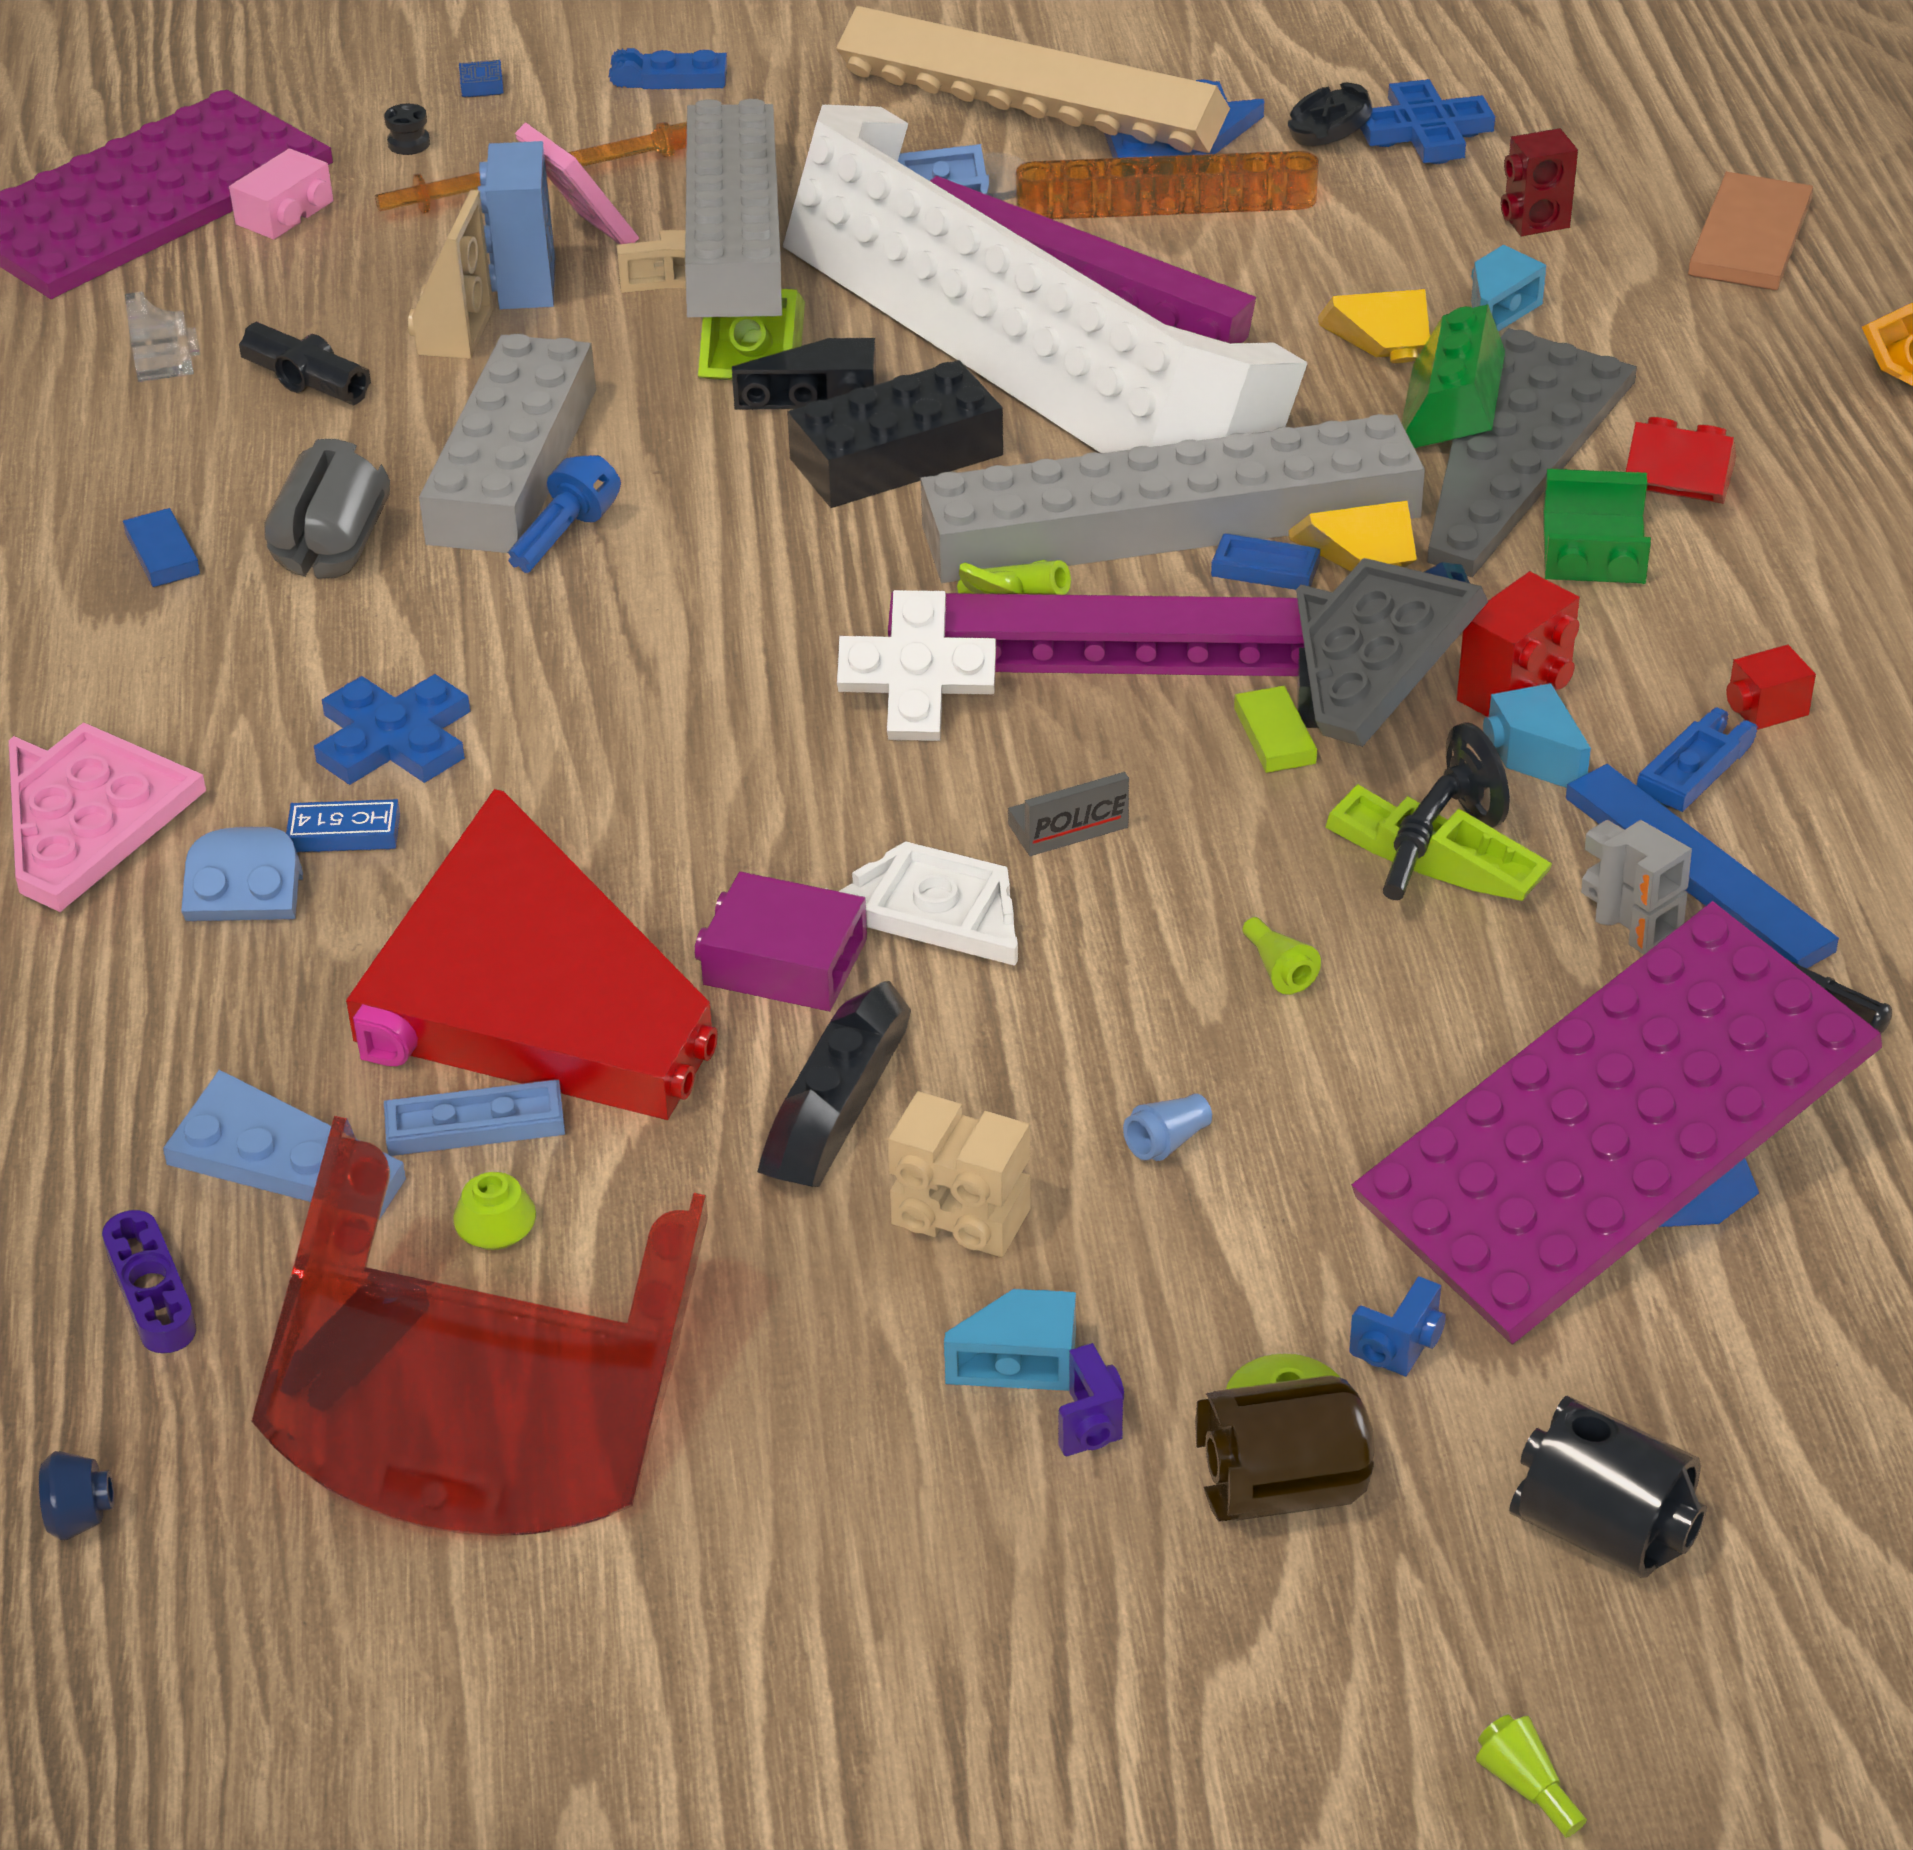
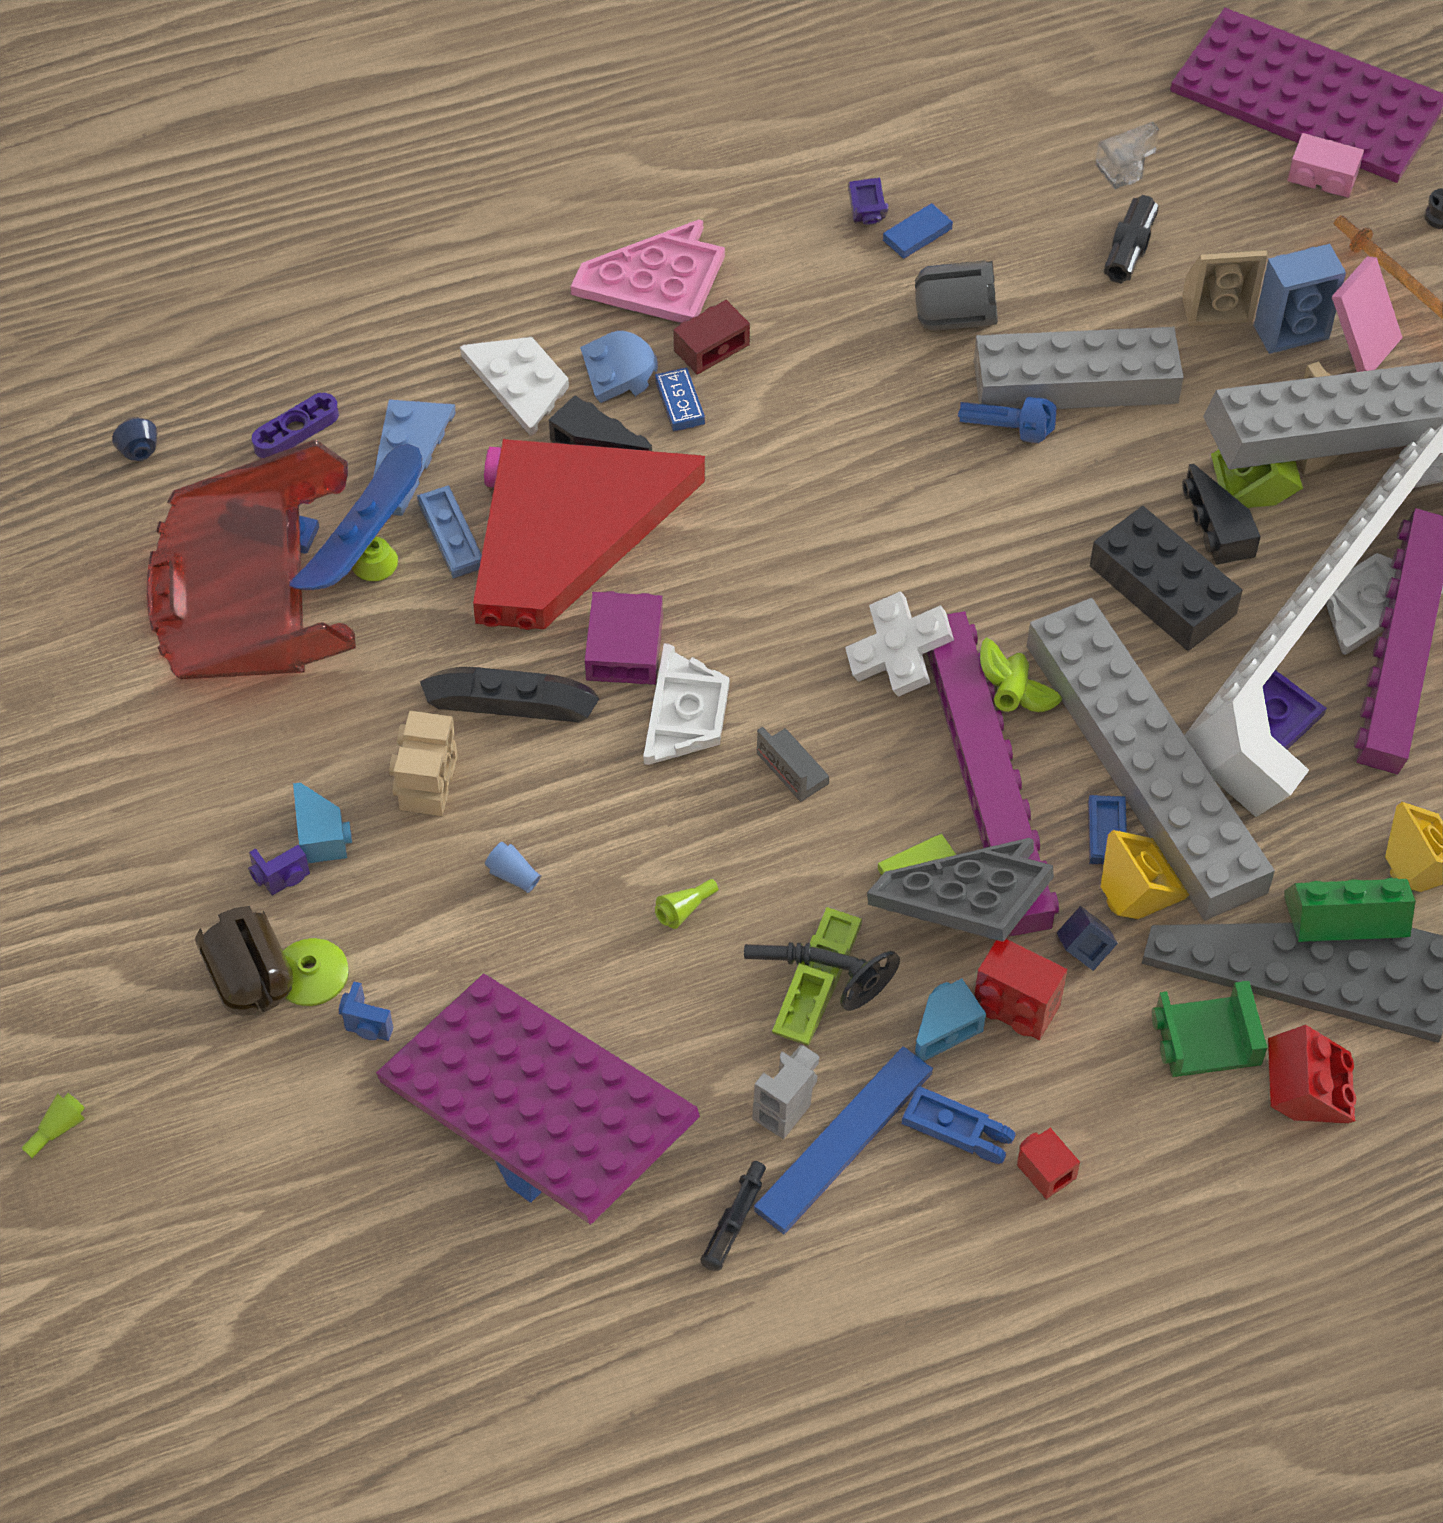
camera: 75 degrees right, 15 degrees up
(82, 576) = (867, 201): none -> dark purple bracket
(199, 994) = (519, 377): none -> white wing
(247, 766) = (711, 336): none -> dark red brick
(357, 920) = (585, 425): none -> black slope
(393, 729) = (777, 396): blue plate -> none
(444, 1190) = (364, 520): none -> blue piece
(1610, 1489) = (240, 1130): black cylinder -> none

